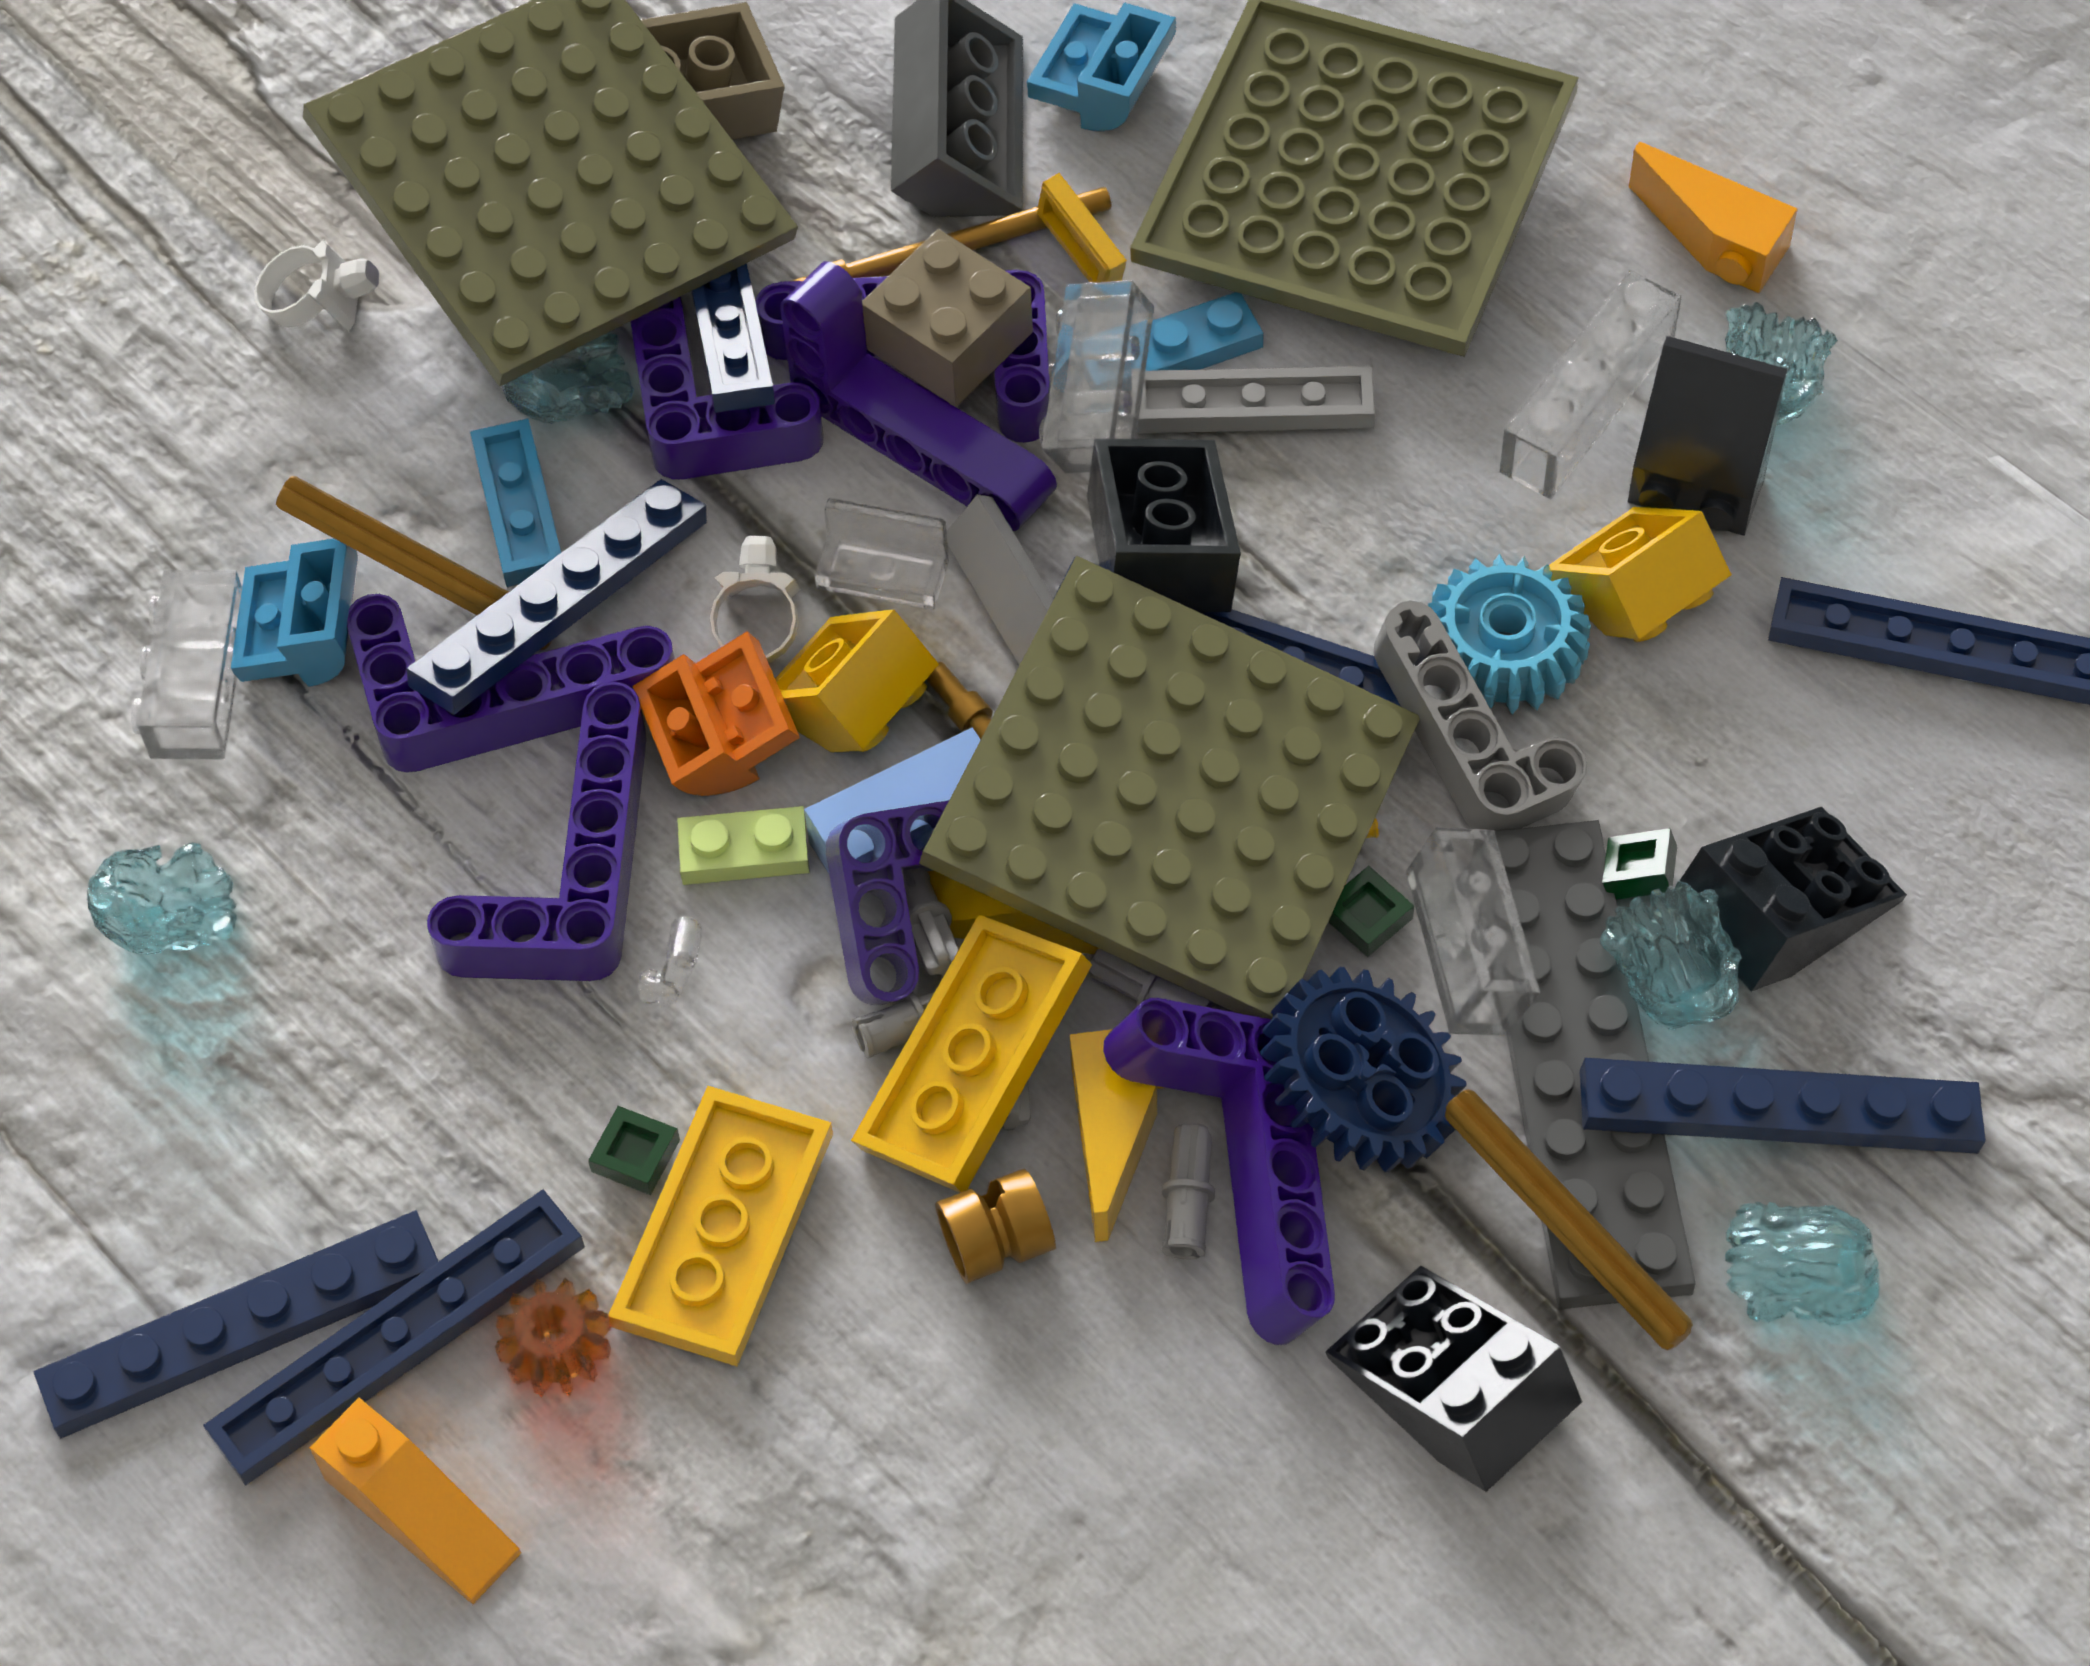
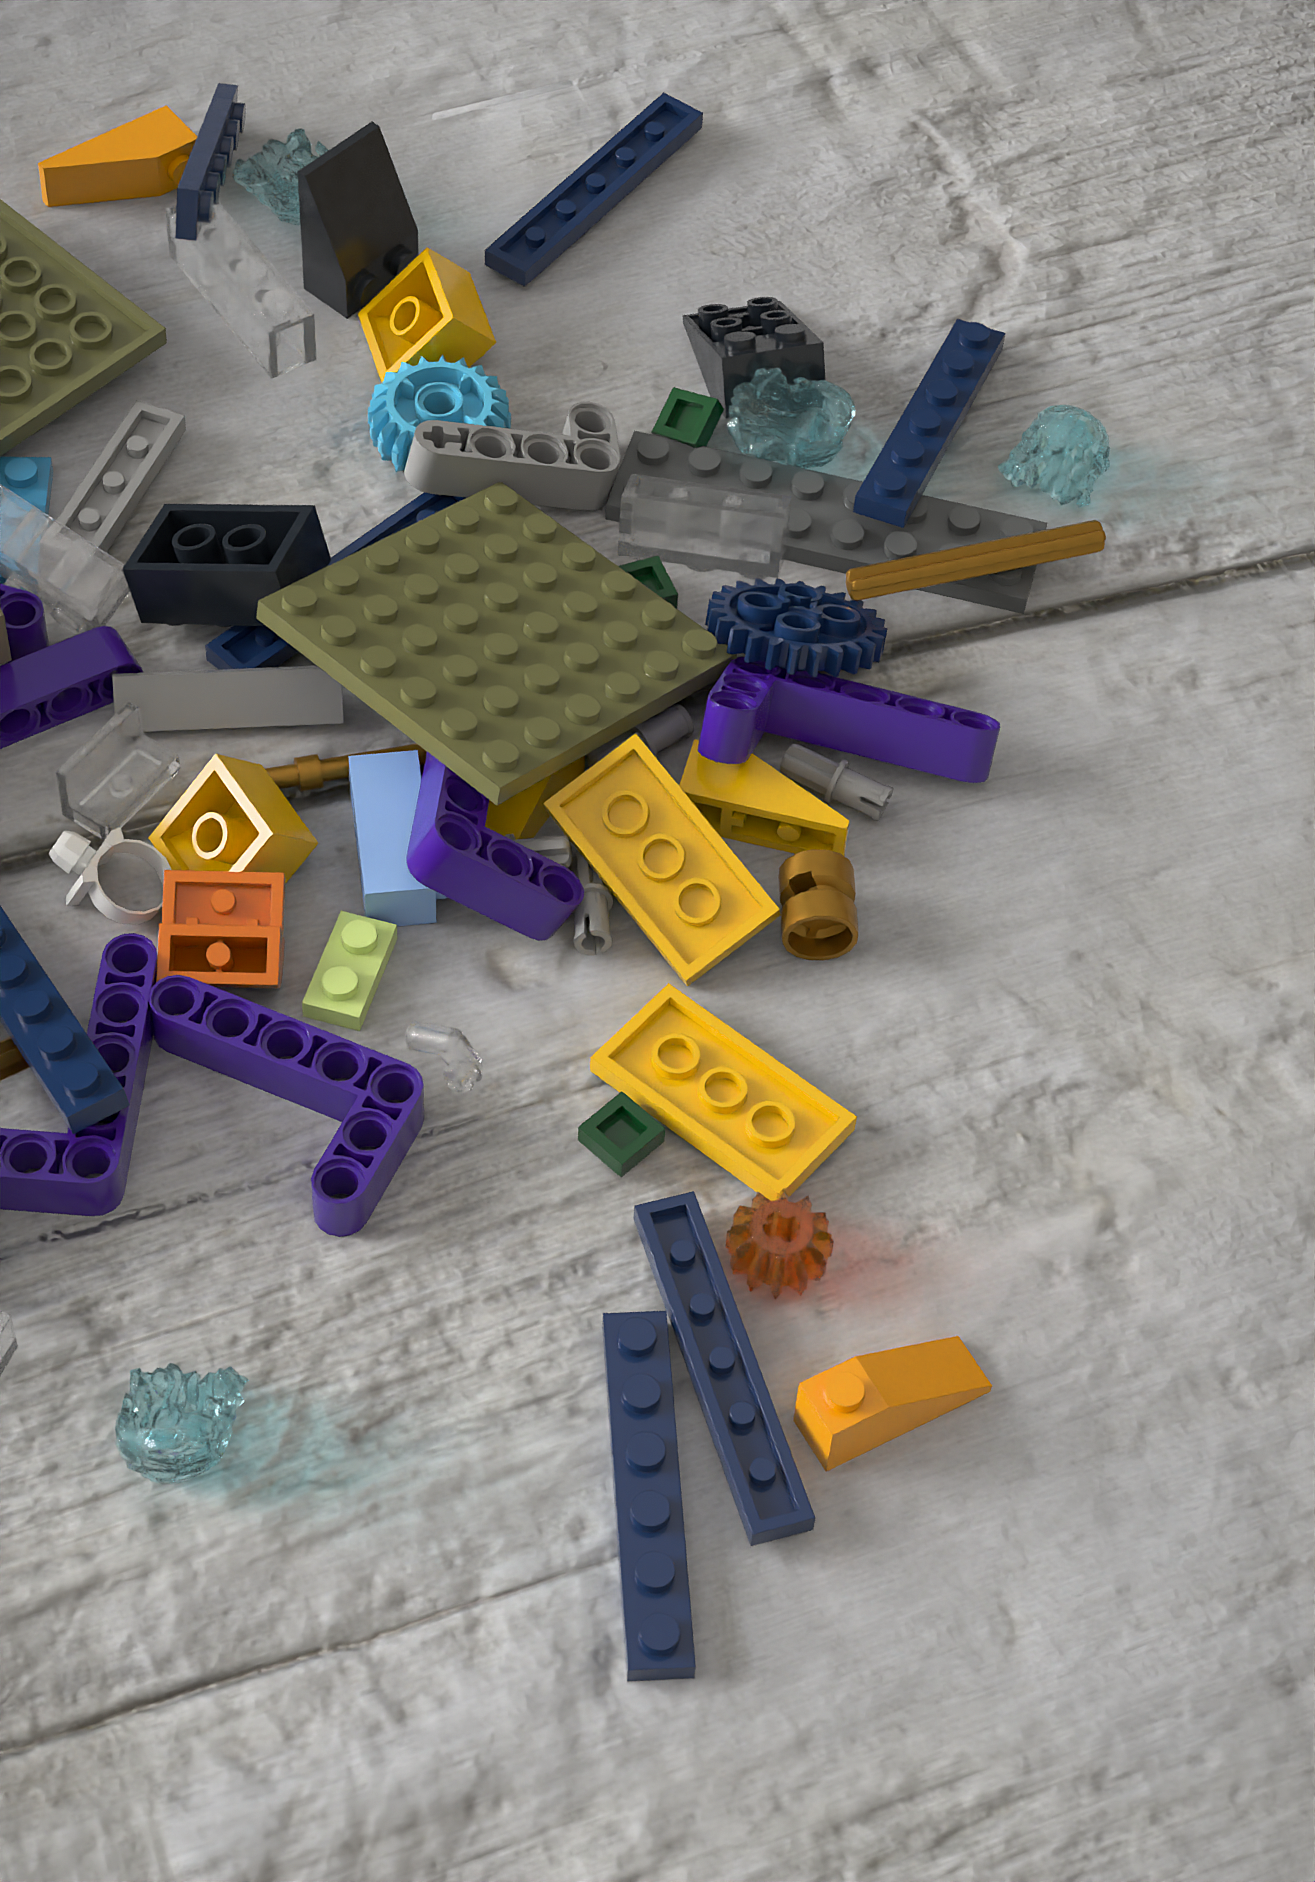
camera: 75 degrees left, 5 degrees down
(1458, 1376) = (1062, 678): black slope -> none
(1707, 270) = (209, 161): none -> dark blue plate

